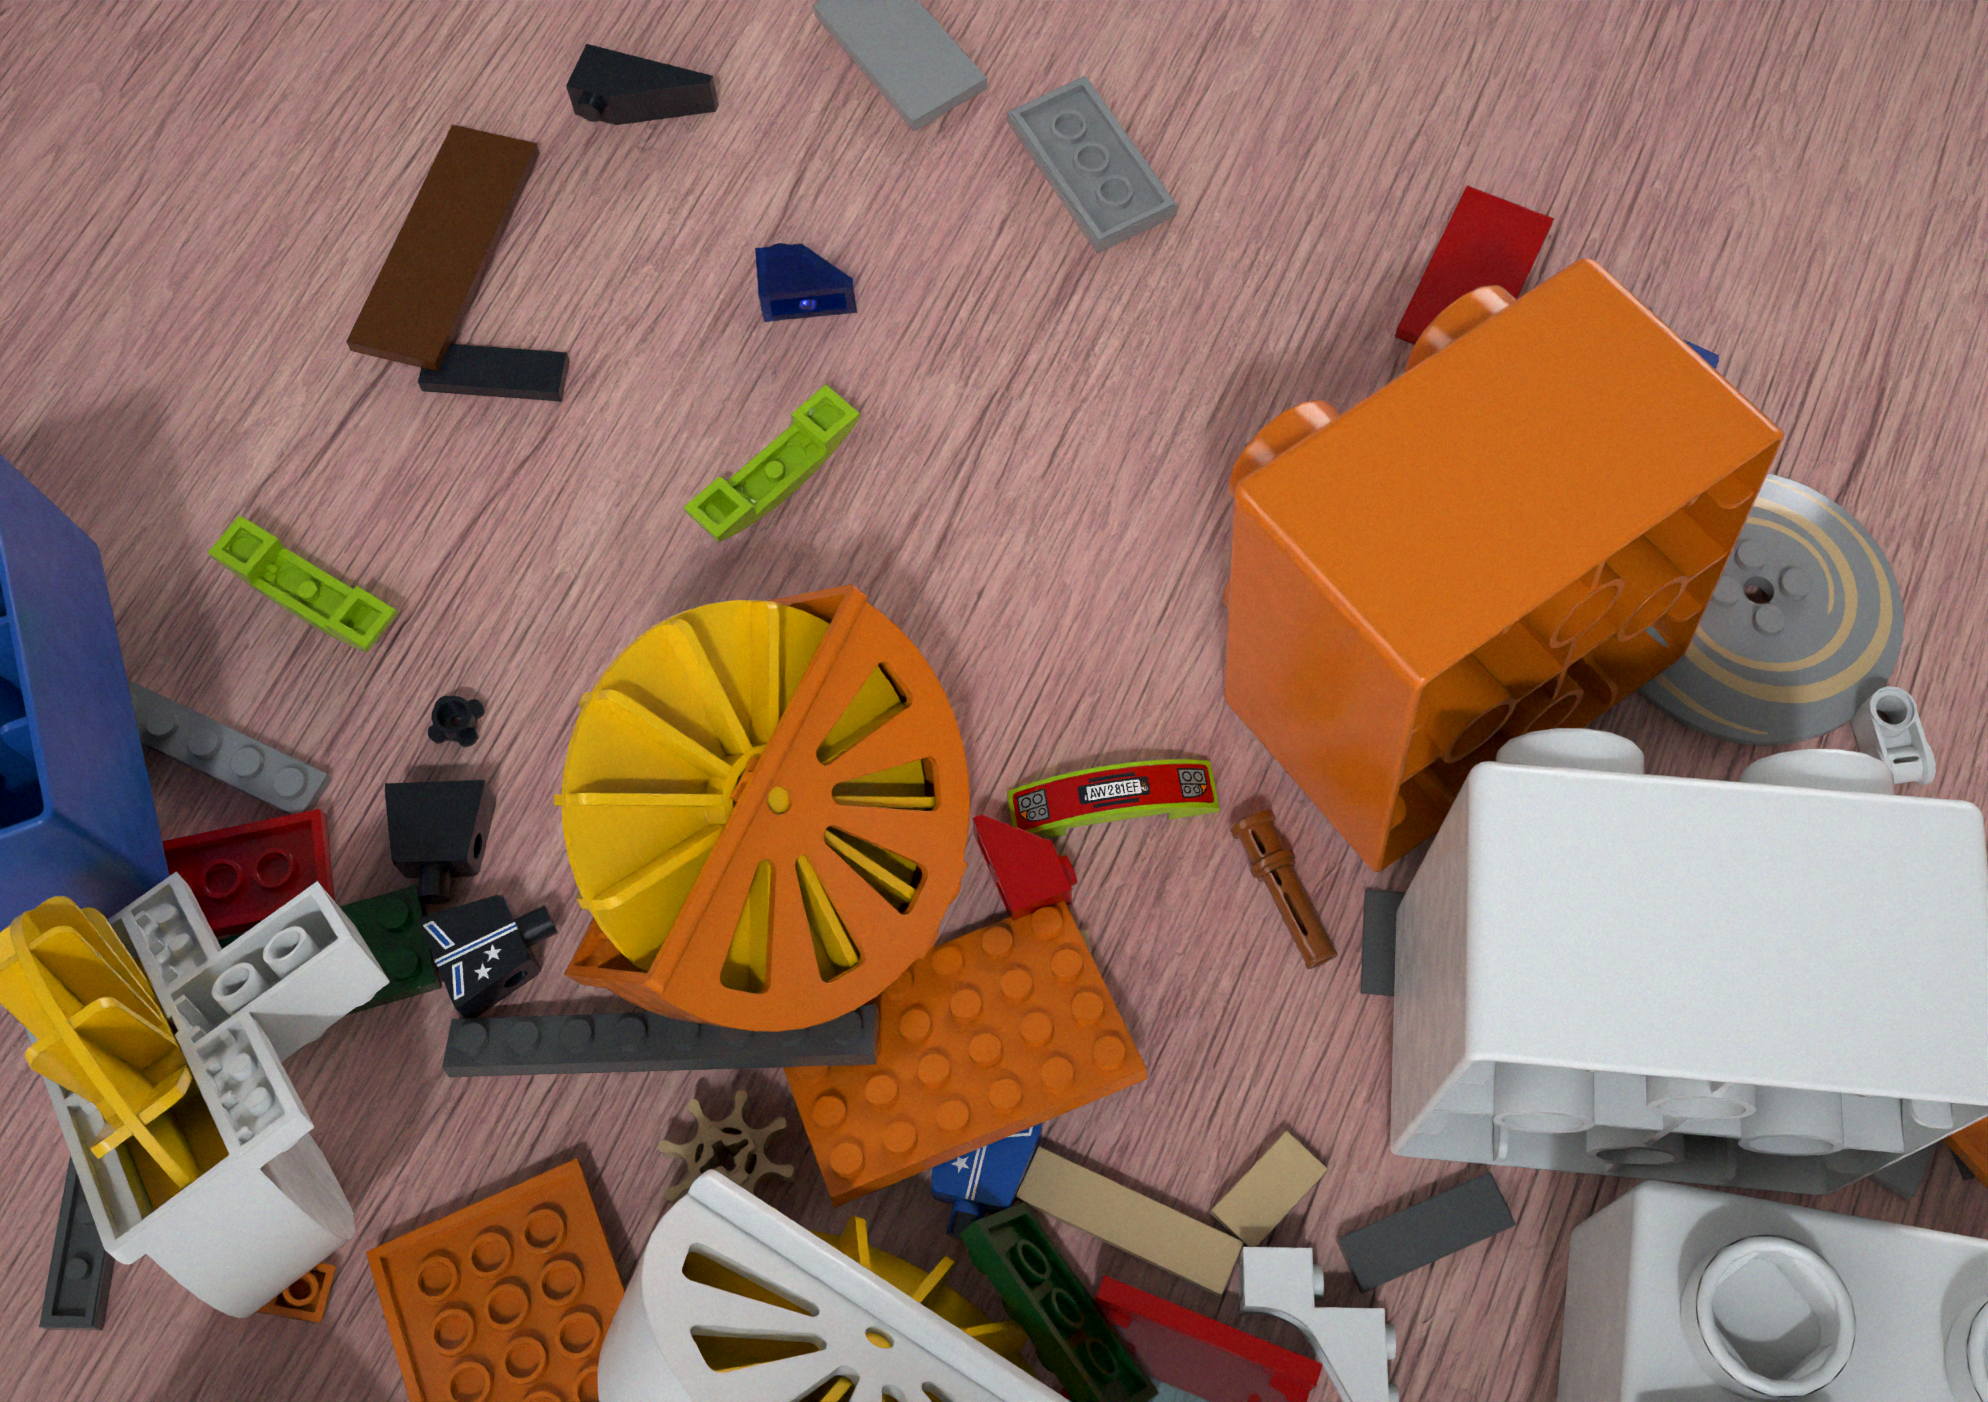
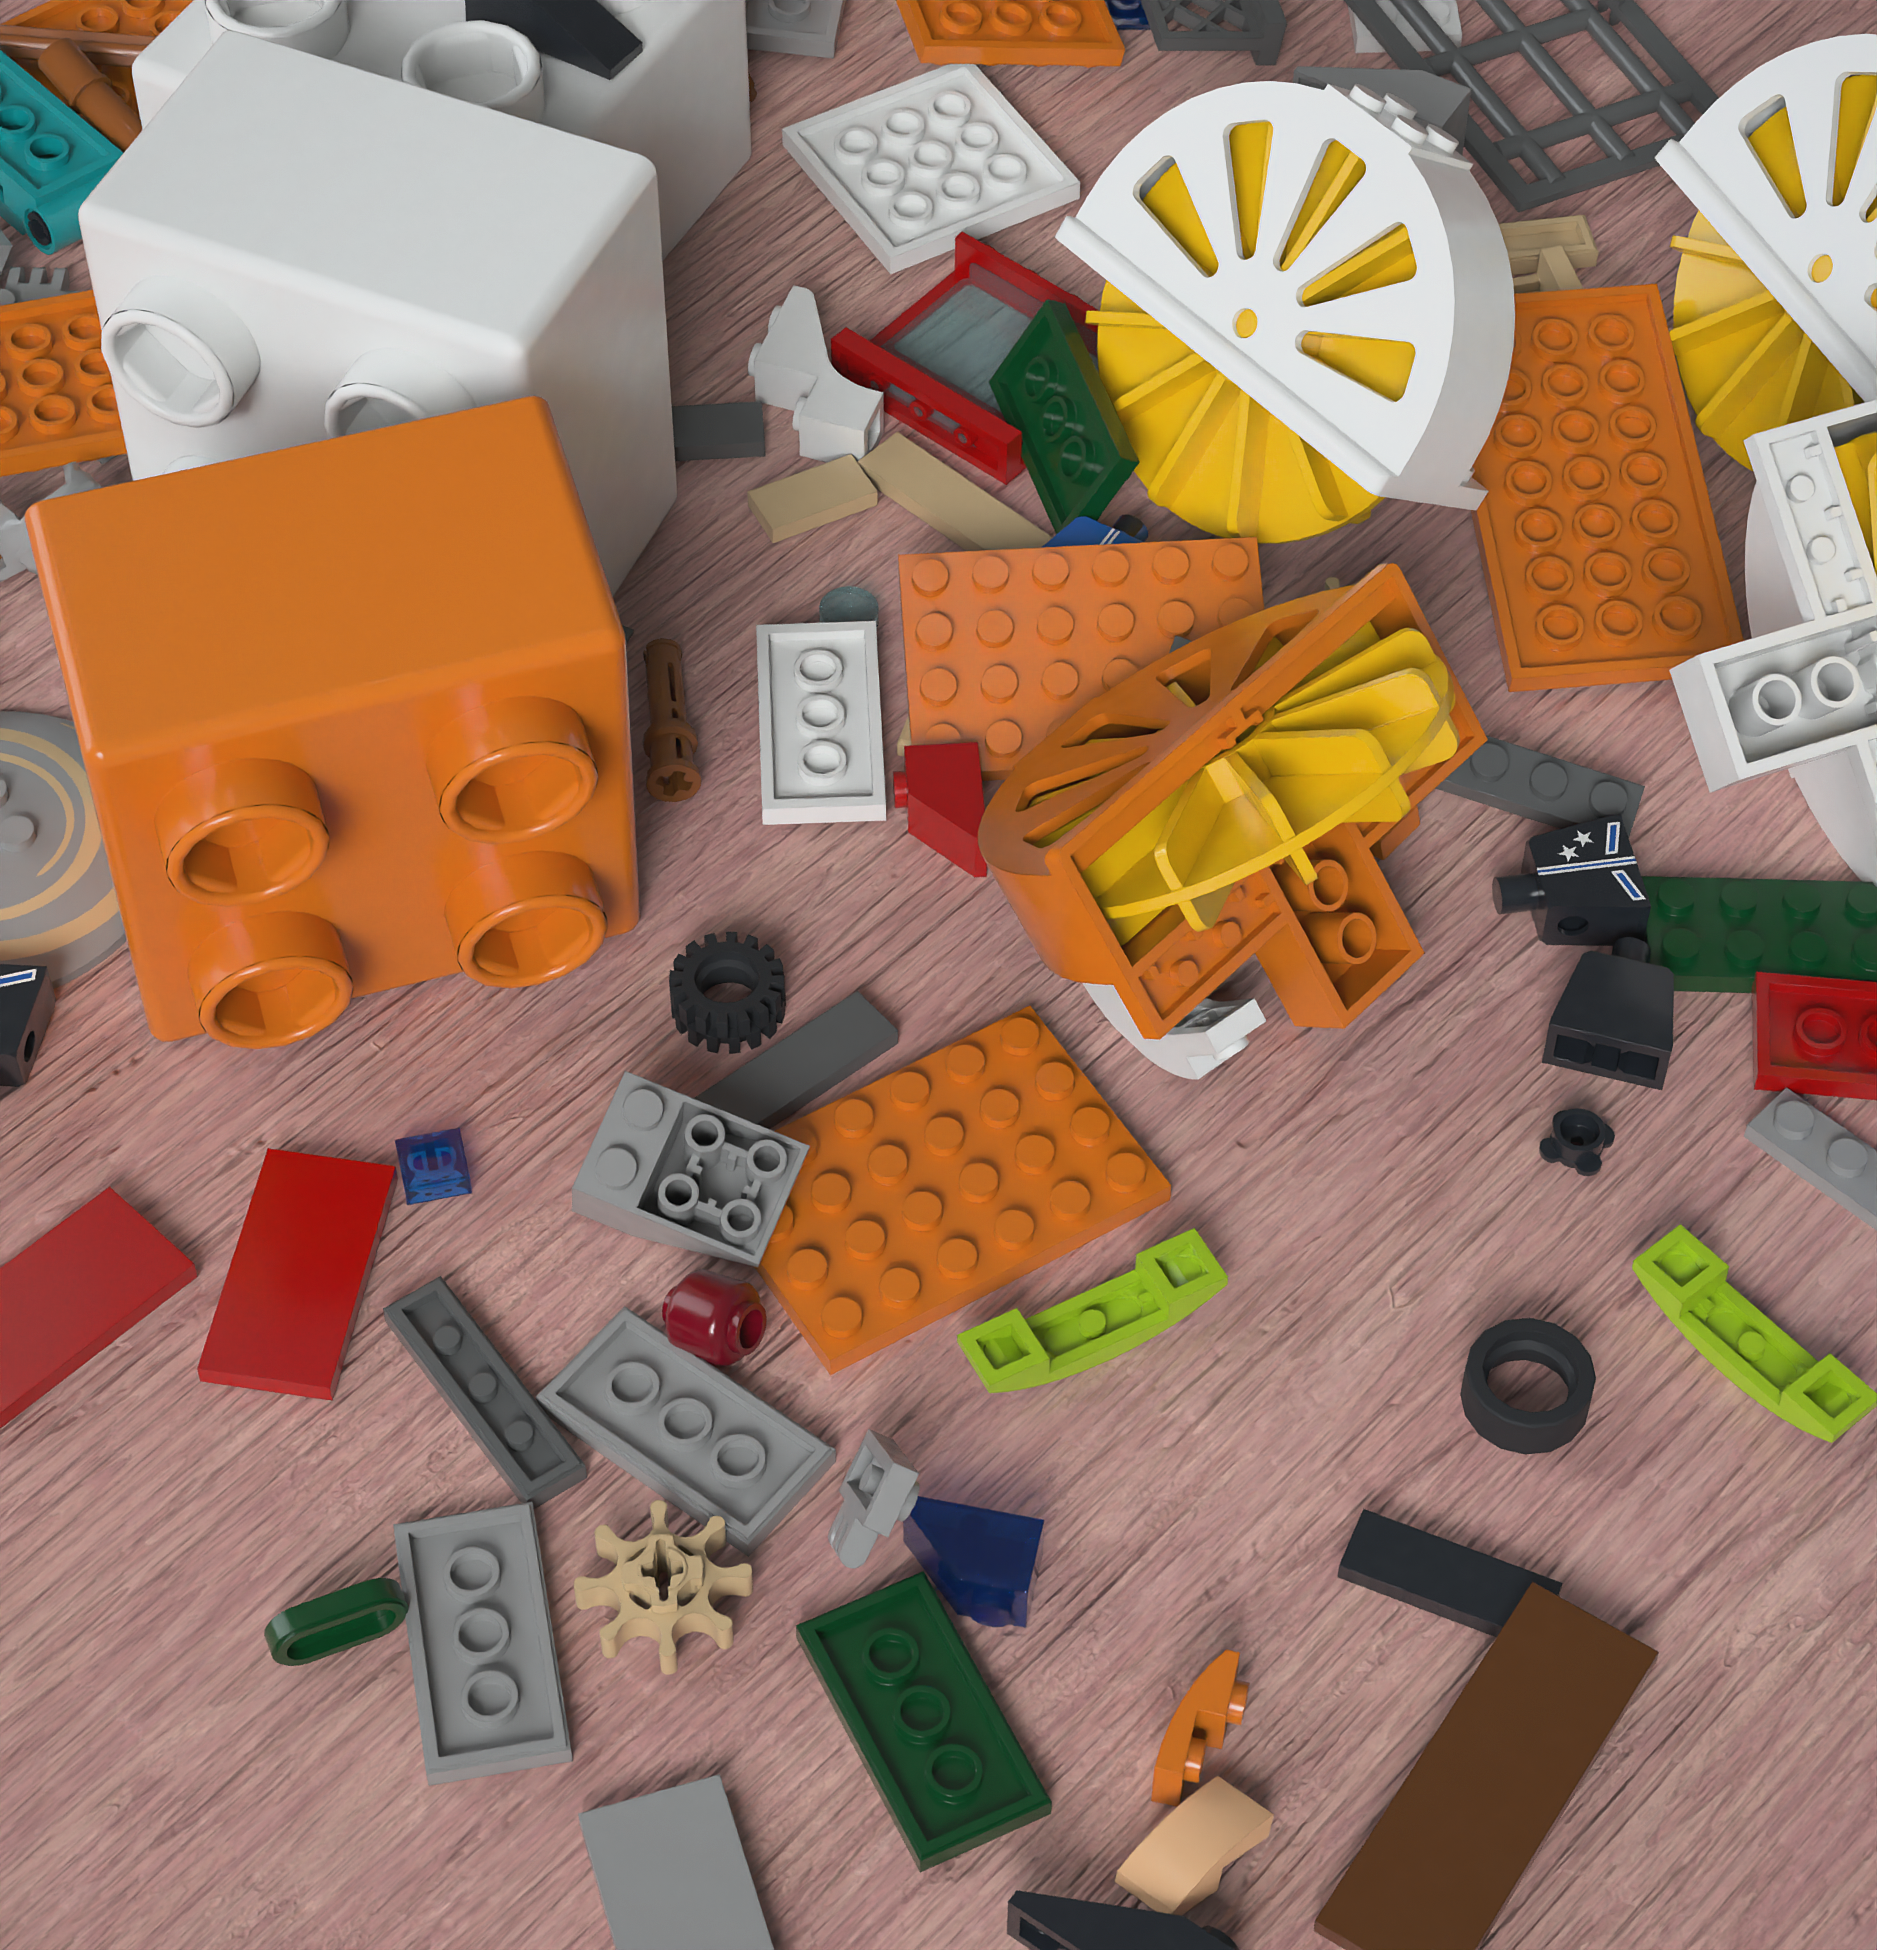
camera: 165 degrees left, 15 degrees down
(447, 479) = (1539, 1343): none -> black tyre
(615, 157) = (1192, 1845): none -> light nougat slope
(630, 226) = (1197, 1723): none -> orange slope
(805, 194) = (923, 1721): none -> dark green tile
(871, 277) = (875, 1495): none -> light grey hinge
(933, 528) = (948, 1188): none -> orange plate
(990, 211) = (635, 1586): none -> tan gear
(1022, 326) = (686, 1430): none -> light grey tile
(1031, 387) = (714, 1317): none -> dark red head
(1061, 592) = (804, 1063): none -> dark grey tile
(1091, 467) = (686, 1173): none -> light grey slope
(1114, 794) = (817, 843): slope -> none
(1135, 619) = (729, 1021): none -> black tyre
(1160, 927) = (820, 723): none -> white plate
(1165, 311) = (485, 1393): none -> dark grey tile
(1180, 134) = (336, 1622): none -> dark green tile
(1183, 1063) = (848, 605): none -> clear light blue tile
(1323, 335) = (298, 1274): none -> red tile

